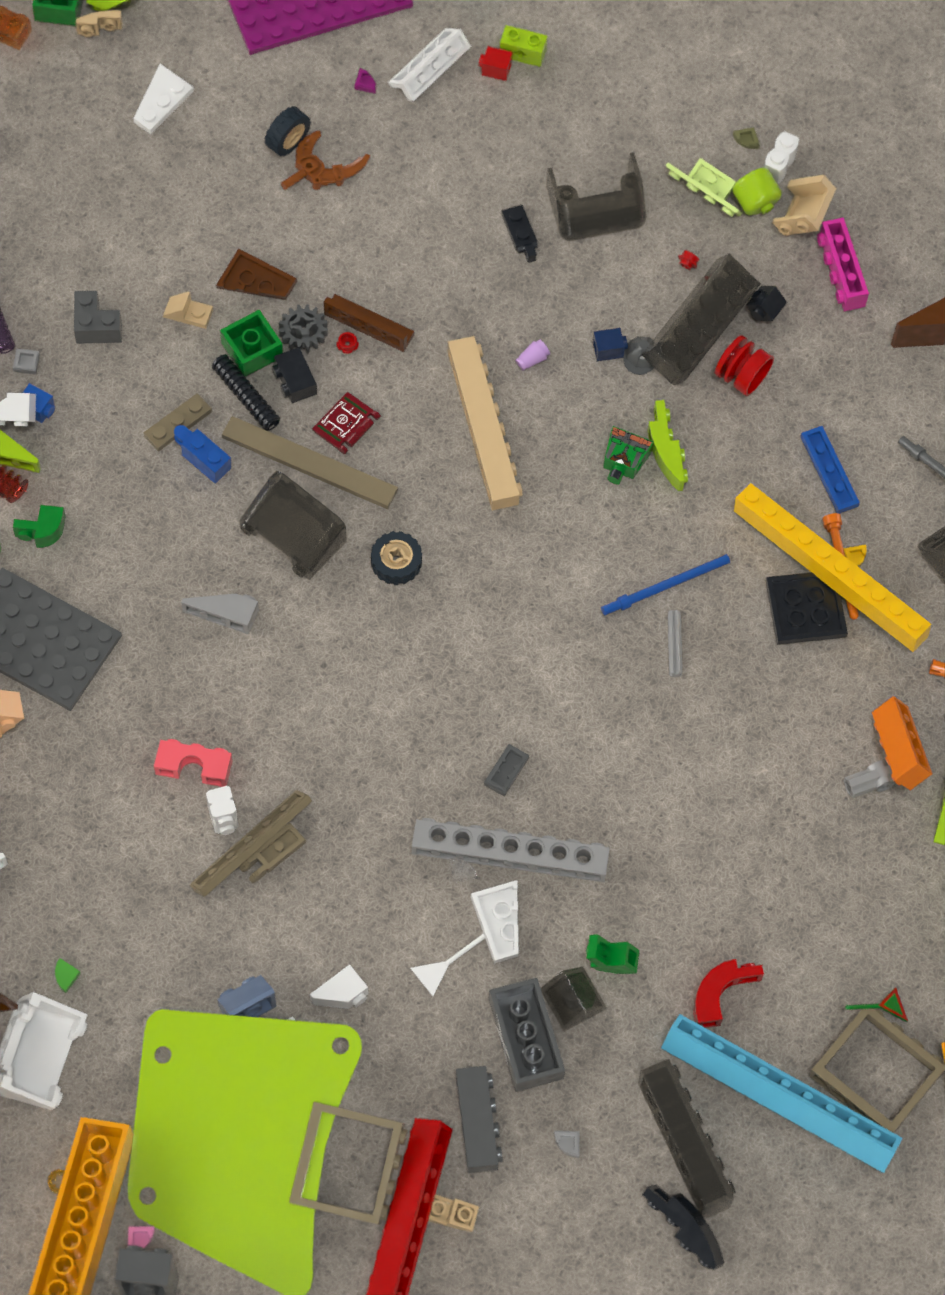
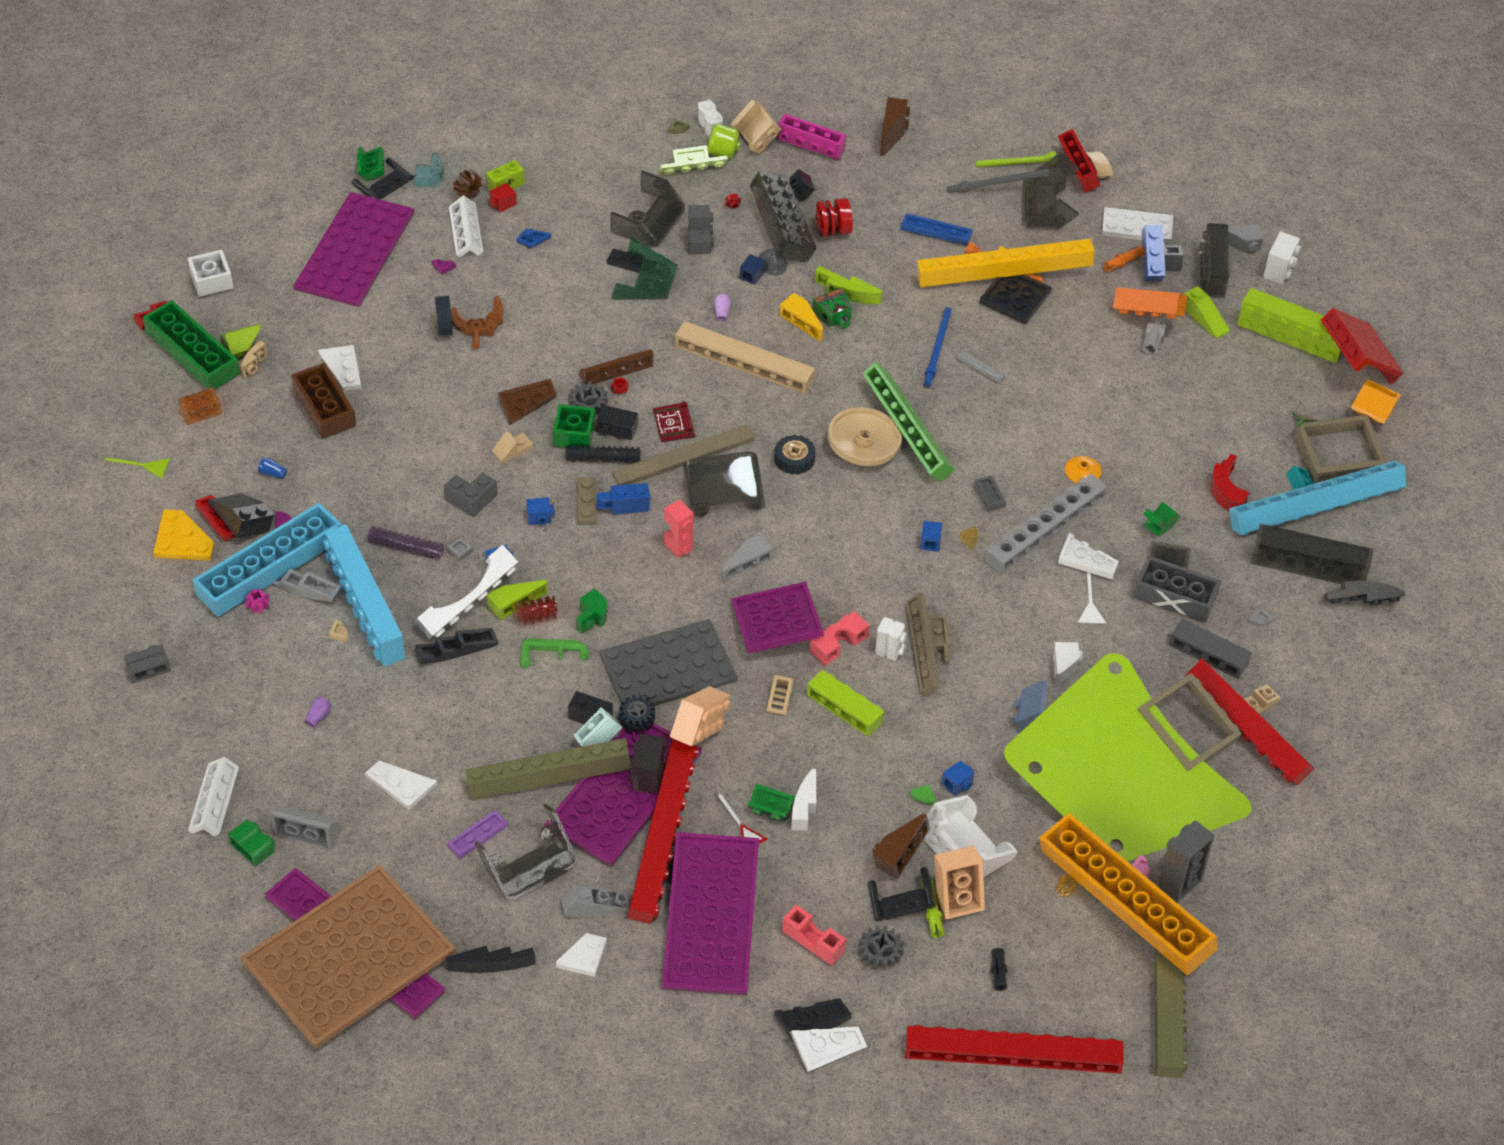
camera: 50 degrees left, 15 degrees down
(96, 116) = (323, 400): none -> reddish brown brick
(100, 760) = (784, 682): none -> tan slope
(108, 992) = (958, 778): none -> blue brick
(116, 825) = (845, 703): none -> lime brick
(124, 392) = (539, 511): none -> blue brick
(165, 690) = (777, 617): none -> magenta plate
(190, 526) = (680, 536): none -> coral arch
(398, 754) = (931, 536): none -> blue brick
(434, 791) = (969, 536): none -> clear yellow tile
(471, 603) = (864, 436): none -> tan dish
(472, 127) = (532, 237): none -> blue piece
(481, 21) = (467, 183): none -> reddish brown gear
(515, 266) = (654, 275): none -> clear green wing
(527, 629) = (908, 422): none -> bright green brick
(589, 430) = (799, 313): none -> yellow slope
(613, 262) = (700, 229): none -> dark grey brick
(627, 846) = (1082, 467): none -> light orange dish
(800, 1059) = (1299, 477): none -> teal slope

